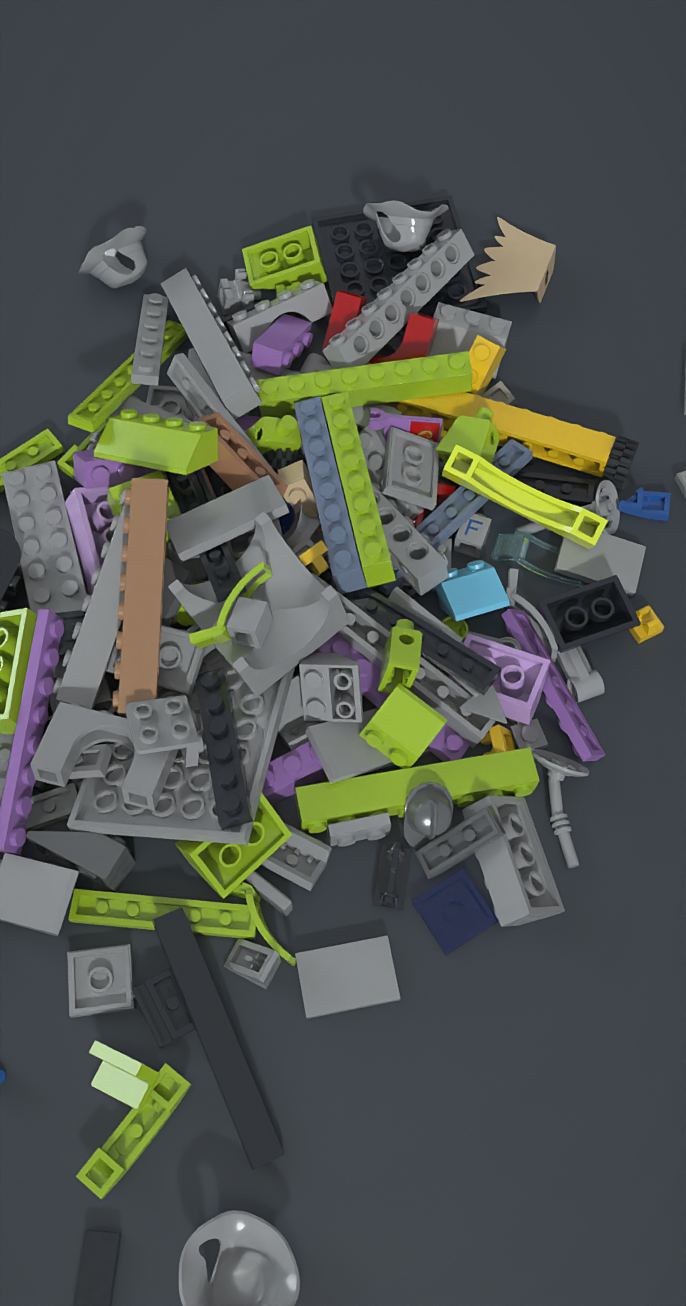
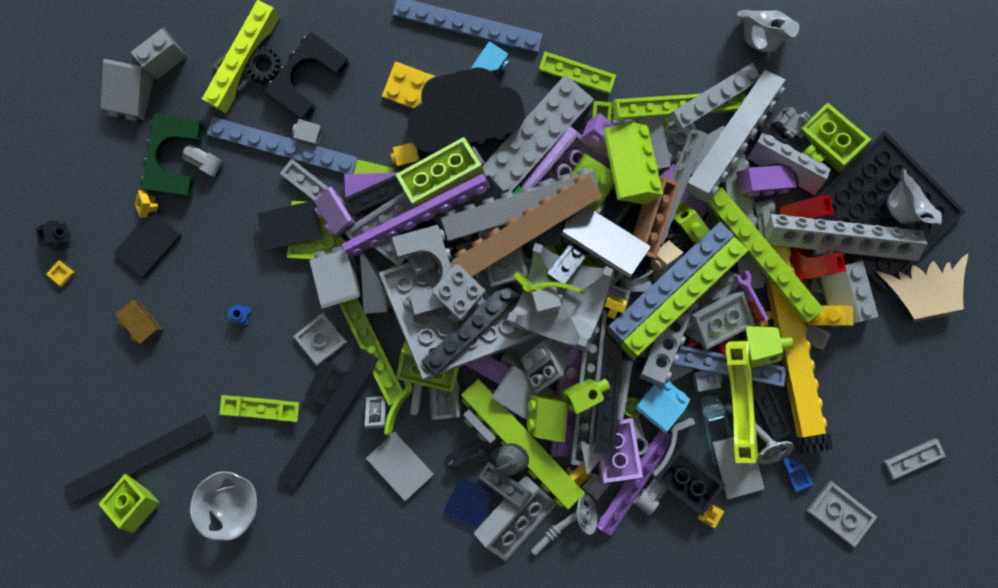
camera: 55 degrees right, 20 degrees up
(122, 1076) = (280, 385): panel -> none

